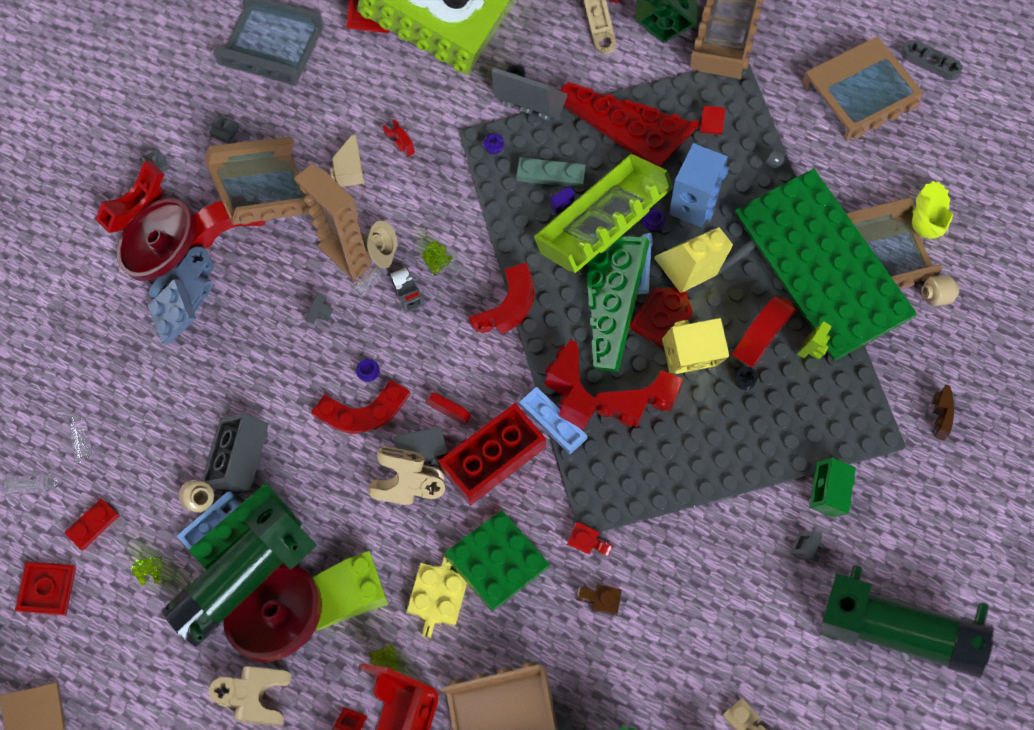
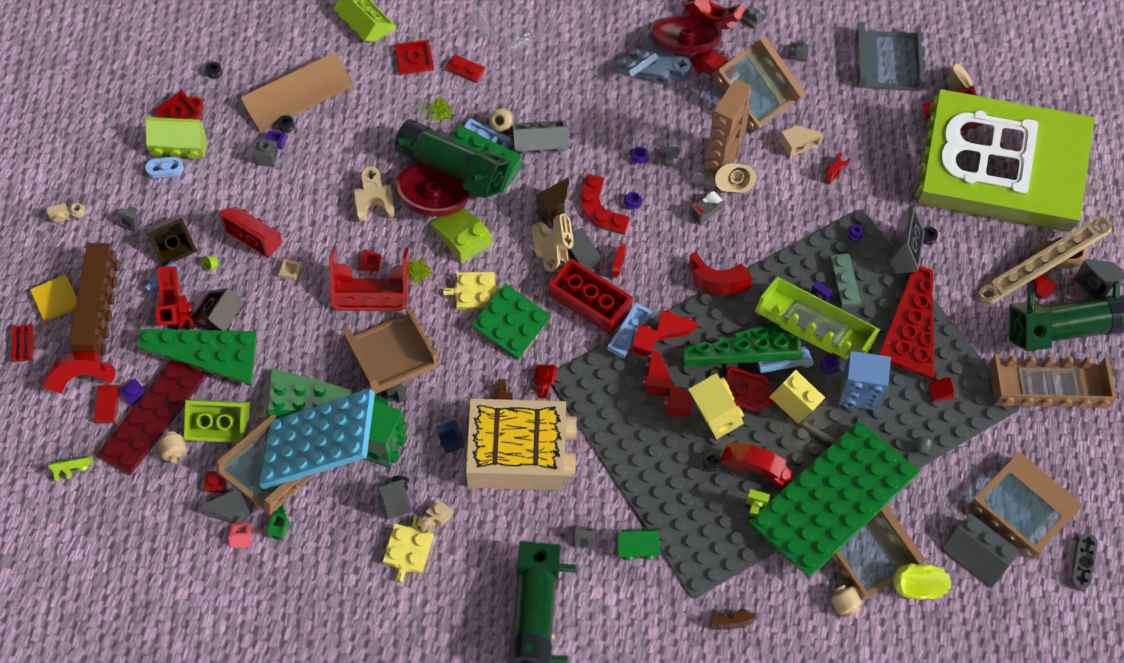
camera: 70 degrees right, 5 degrees down
(303, 339) = (639, 151): none -> dark purple plate
(352, 464) = (552, 202): none -> dark brown slope
(436, 257) = (739, 220): clear neon green tile -> none
(640, 677) = (450, 436): none -> dark blue panel
(679, 592) = (519, 444): none -> brick
(904, 145) = (980, 550): none -> dark grey slope

